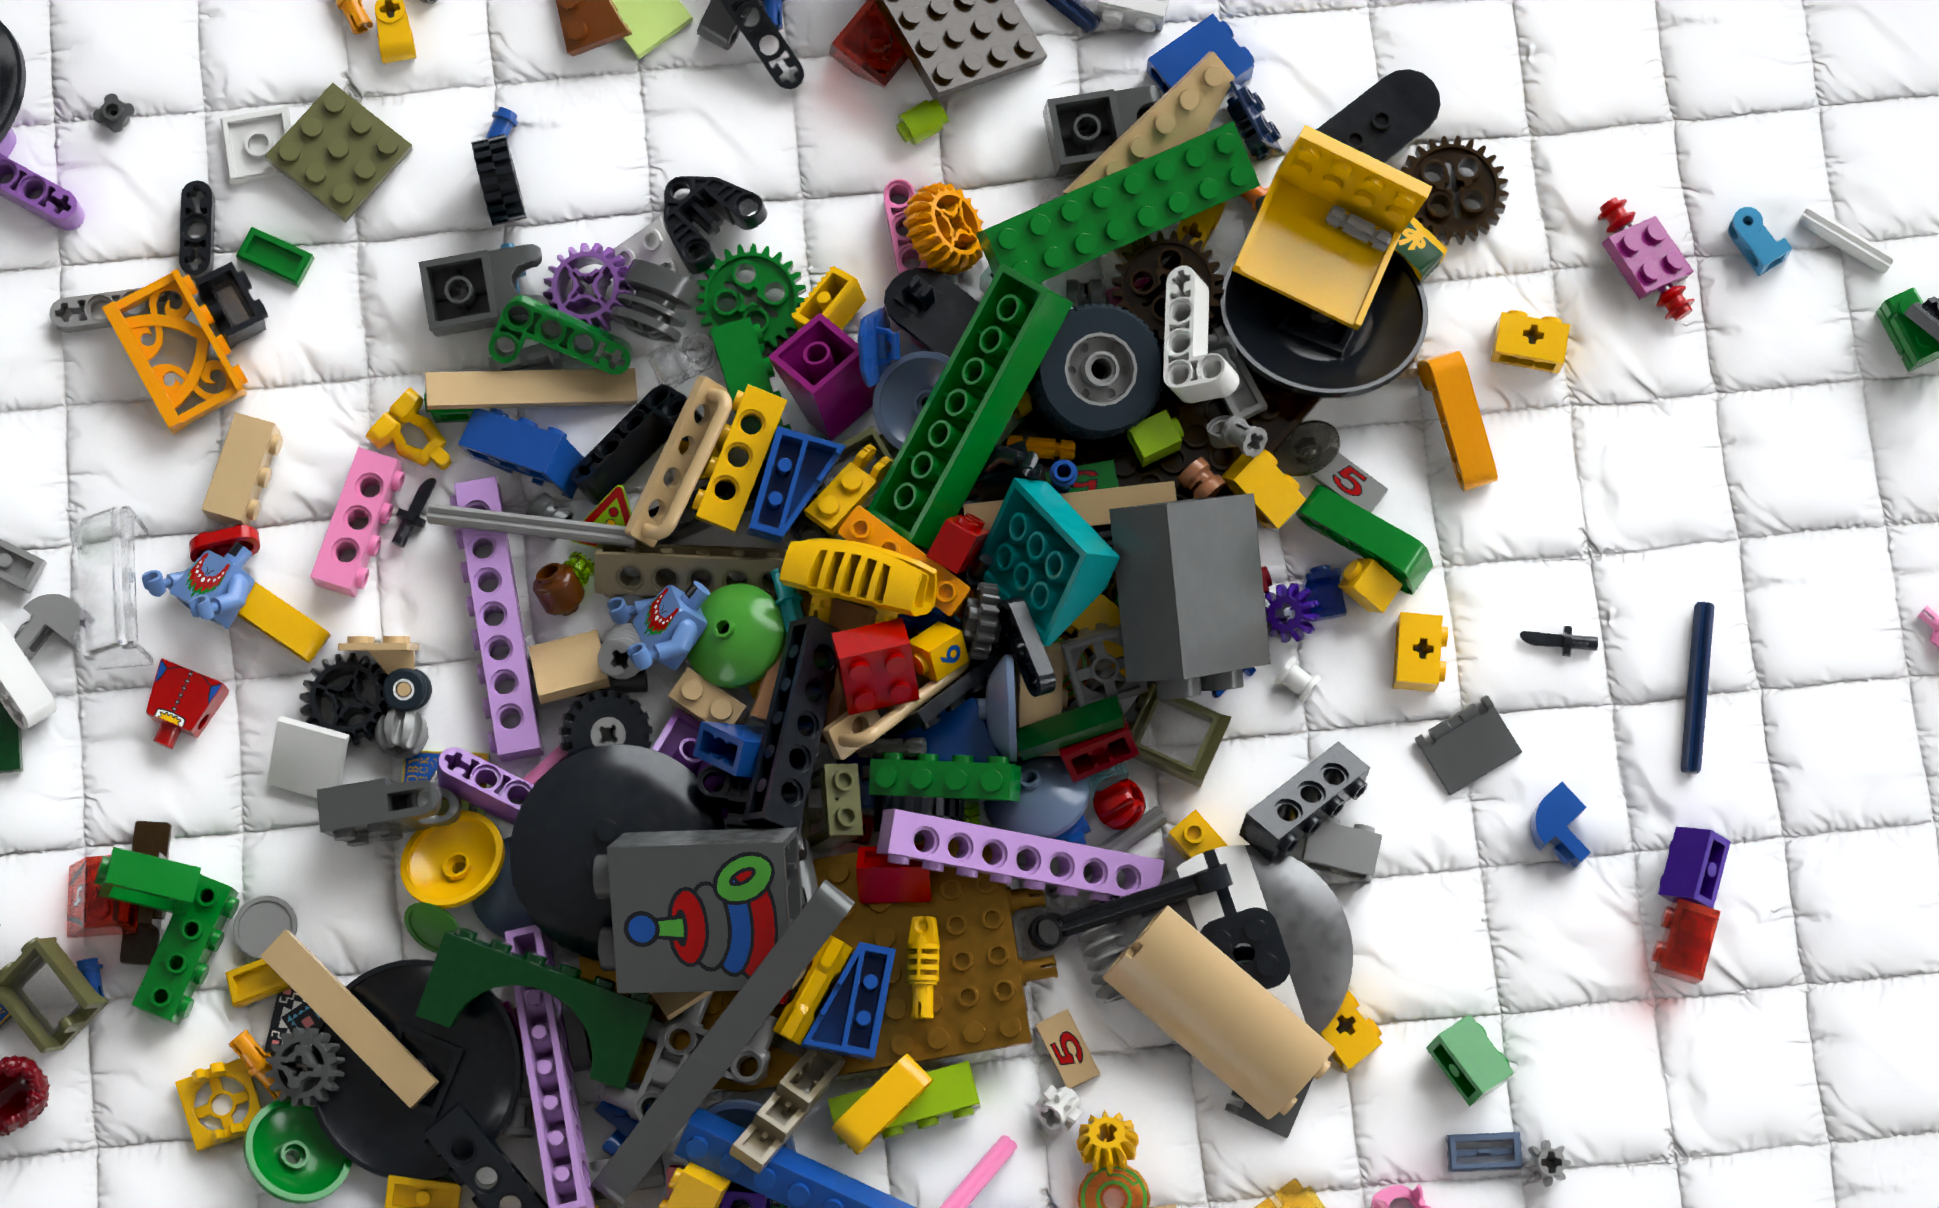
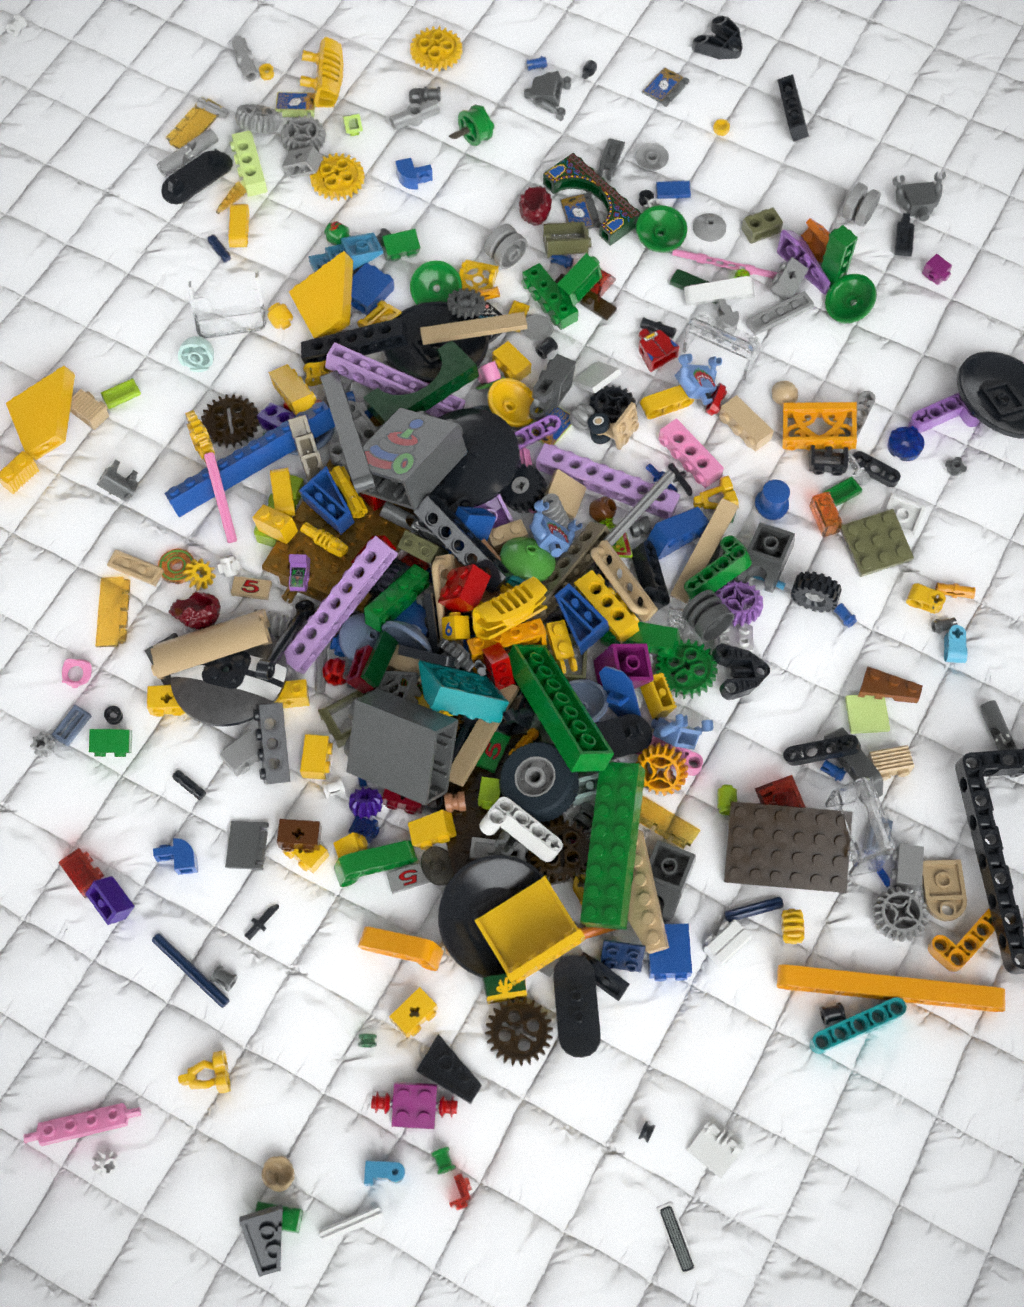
camera: 125 degrees right, 10 degrees down
(110, 192) = (908, 434): none -> clear blue plate
(134, 727) = (654, 326): none -> black pin
(135, 1079) = (505, 246): none -> light grey wheel
(139, 446) = (784, 392): none -> tan hair
(228, 239) = (861, 476): none -> clear bar
(297, 885) = (546, 347): none -> black bush
(338, 251) = (825, 514): none -> clear orange brick
(364, 345) = (773, 500): none -> blue piece
(368, 922) = (511, 362): none -> yellow brick
(419, 935) = (488, 373): none -> bright pink piece
(430, 551) = (657, 475): none -> clear blue piece
(871, 242) = (677, 732): none -> medium blue torso
(951, 1065) = (275, 524): none -> yellow brick
(1009, 960) = (299, 572): none -> medium lavender leg
(1014, 173) = (667, 824): none -> clear yellow windscreen
(1063, 468) = (499, 736): blue pin -> none
(1173, 1095) = (197, 611): none -> dark red piece
(1237, 433) = (463, 827): light grey connector -> none
(1270, 738) = (316, 756): none -> yellow brick
(1298, 111) = (607, 979): none -> black hinge
(1358, 228) = (521, 956): light grey axle -> none
(1414, 675) = (290, 829): none -> reddish brown brick
(1432, 1092) = (113, 721): none -> black bush
(1444, 897) = (189, 784): none -> black axle
(1570, 246) = (448, 1071): none -> black wing
(1611, 377) = (367, 1040): none -> clear green bush
(1674, 629) = (224, 978): none -> dark grey bush
(1685, 176) = (443, 1160): none -> green bush
(1713, 118) = (463, 1187): none -> clear red bracket
(1805, 533) = (218, 1064): none -> yellow piece
(1861, 368) = (278, 1173): none -> tan hair

